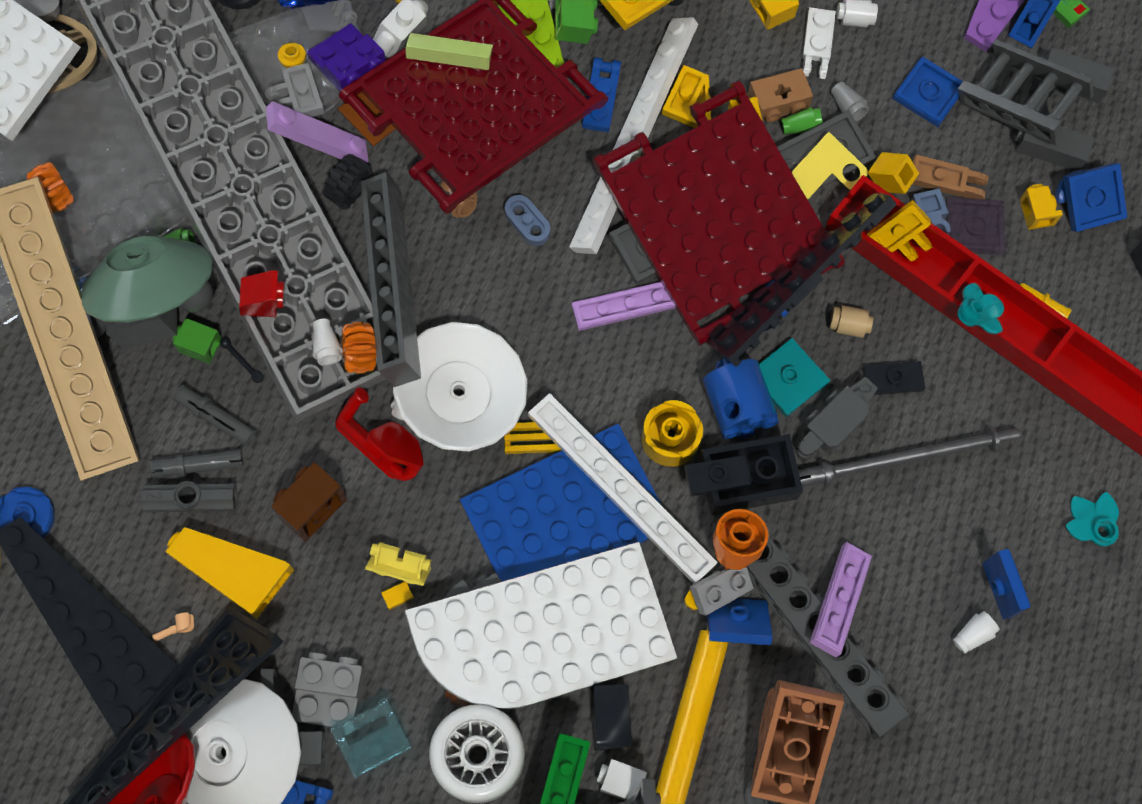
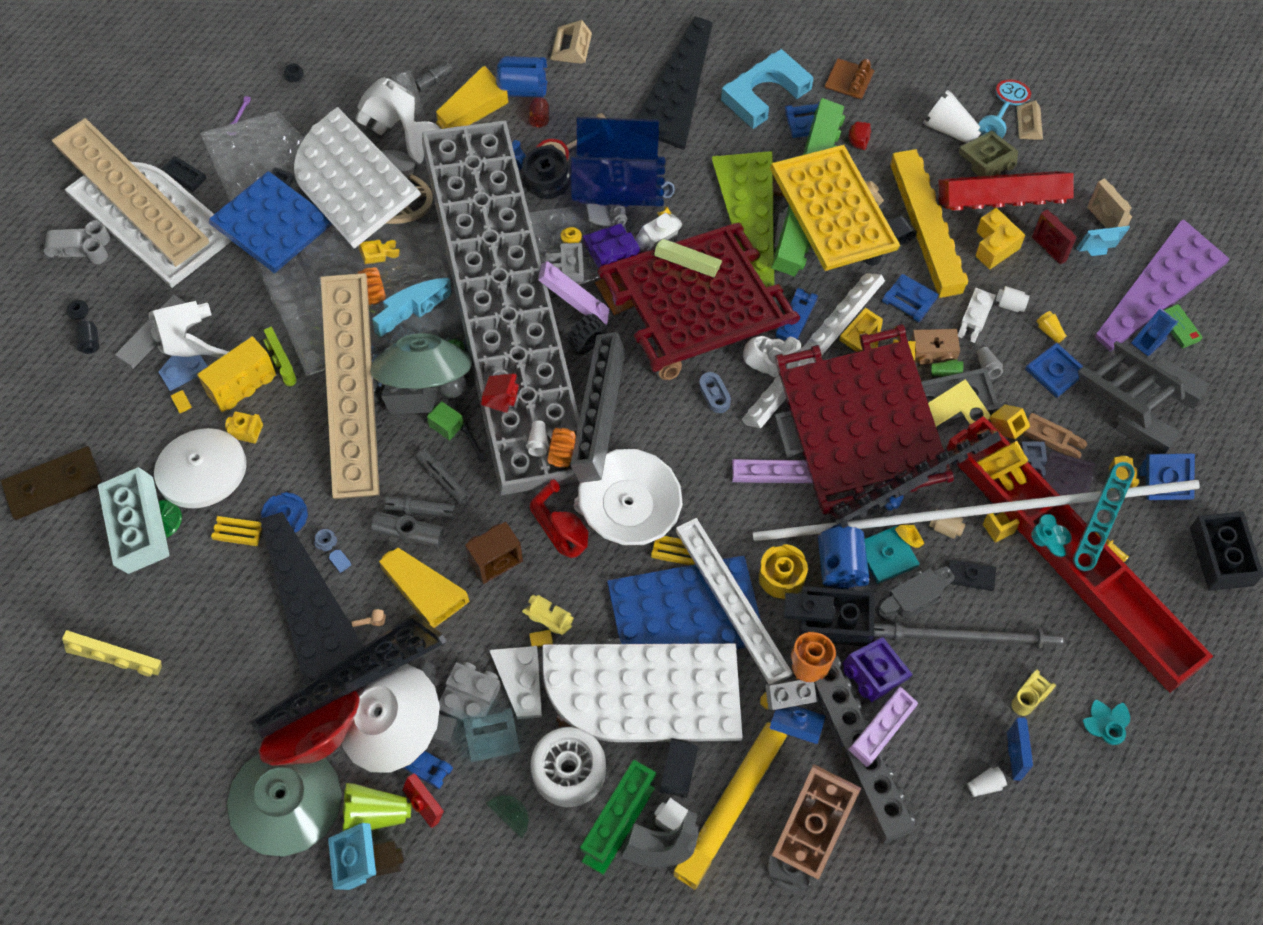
camera: 20 degrees right, 10 degrees down
(42, 137) = (376, 252): none -> yellow plate
(87, 530) = (321, 536): none -> sand blue plate
(112, 192) = (415, 299): none -> medium azure slope
(113, 560) = (339, 560): none -> medium blue piece
(386, 653) = (520, 677): none -> white wing
(573, 153) = (761, 352): none -> white head
(736, 32) = (913, 293): none -> blue plate
(810, 347) = (910, 535): none -> yellow tile
(813, 528) = (876, 669): none -> dark purple plate
(890, 296) = (978, 510): none -> white piece
(911, 37) = (1051, 326): none -> yellow cone
(912, 308) = (999, 526): none -> yellow panel
(1003, 504) = (1034, 691): none -> light yellow piece
(1049, 262) = (1111, 508): none -> teal beam

